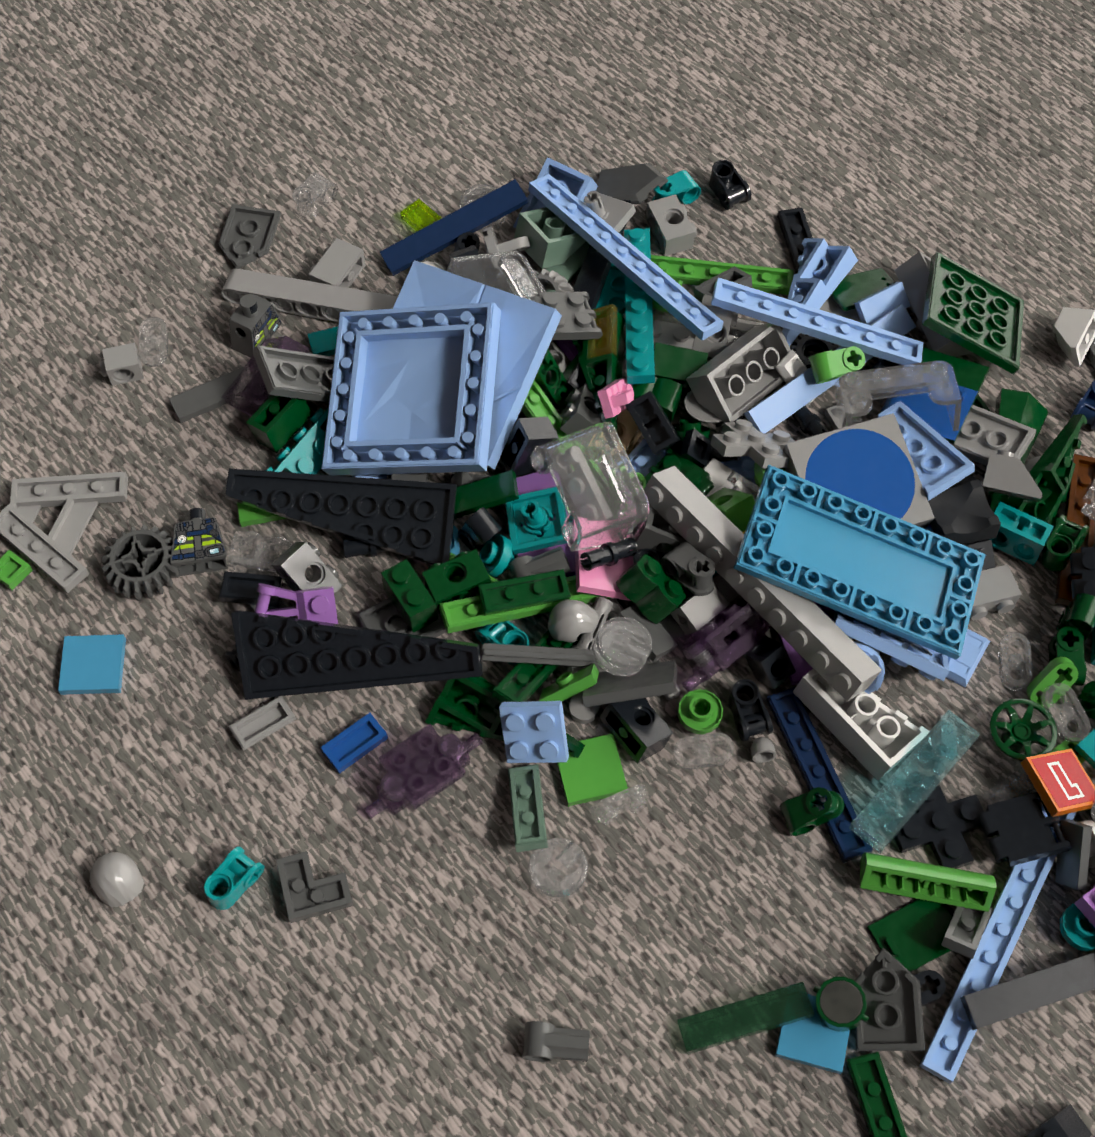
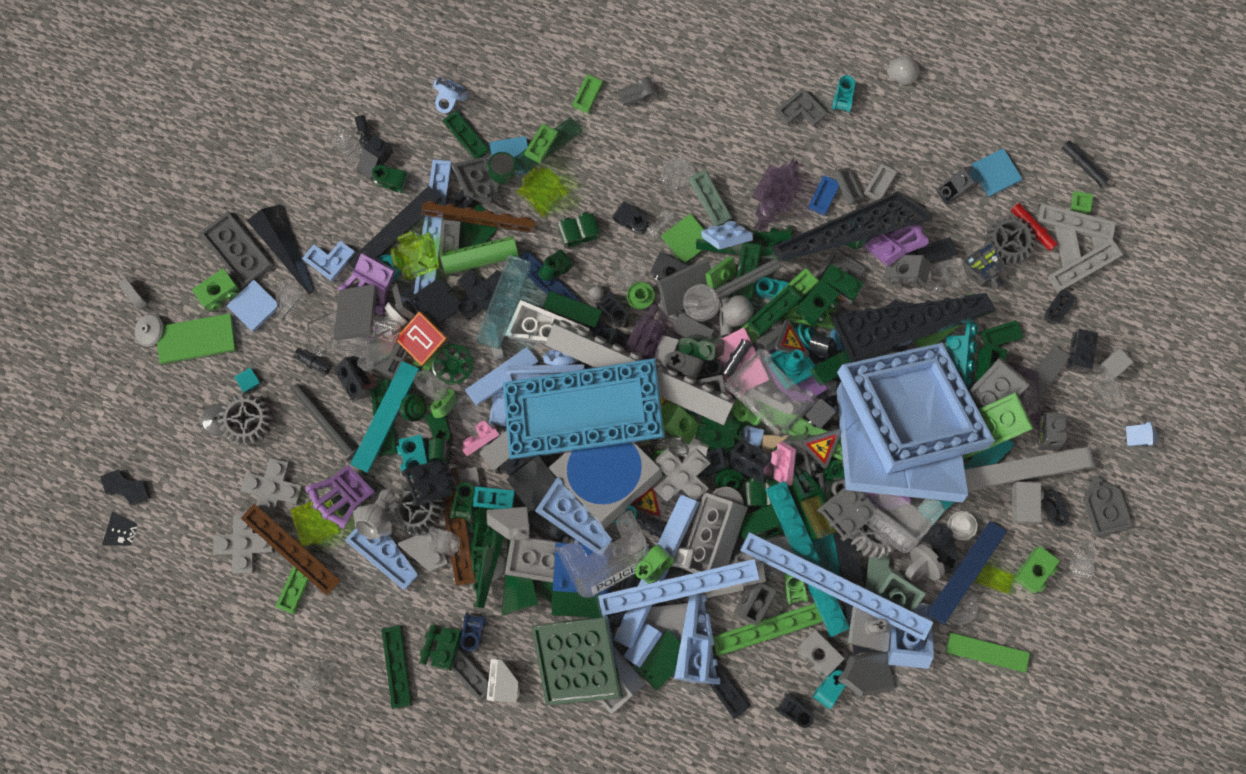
camera: 160 degrees right, 15 degrees up
(93, 556) = (1040, 232): none -> red pin
(140, 458) = (1062, 310): none -> black beam
(151, 392) = (1082, 351): none -> black brick
(152, 281) = (1141, 435): none -> light blue tile
(155, 664) = (959, 184): none -> black slope
(226, 456) = (1001, 334): none -> dark green tile
(302, 255) = (1059, 507): none -> black beam
(307, 338) = (1004, 420): none -> bright green tile
(311, 736) = (849, 186): none -> dark grey tile
(372, 205) = (1026, 575): none -> bright green brick
(476, 159) = (987, 652): none -> bright green tile
(524, 540) = (790, 340): none -> piece
(555, 400) = (822, 446): none -> piece
(638, 1085) = (587, 93): none -> bright green tile
(665, 838) = (628, 216): none -> black piece
(752, 852) = (578, 230): none -> dark green brick
(759, 1013) = (541, 143): none -> bright green plate
(785, 944) = (542, 190): none -> clear neon green panel
(811, 735) = (572, 310): none -> dark green tile
(922, 940) = (485, 218): none -> reddish brown plate
(955, 689) = (494, 380): none -> light blue tile
(1011, 618) = (485, 435): none -> bright pink hinge
(1033, 1080) = (390, 178): none -> dark green piece
(1034, 918) = (415, 255): none -> clear neon green panel
(1042, 583) = (469, 475): none -> light grey tile

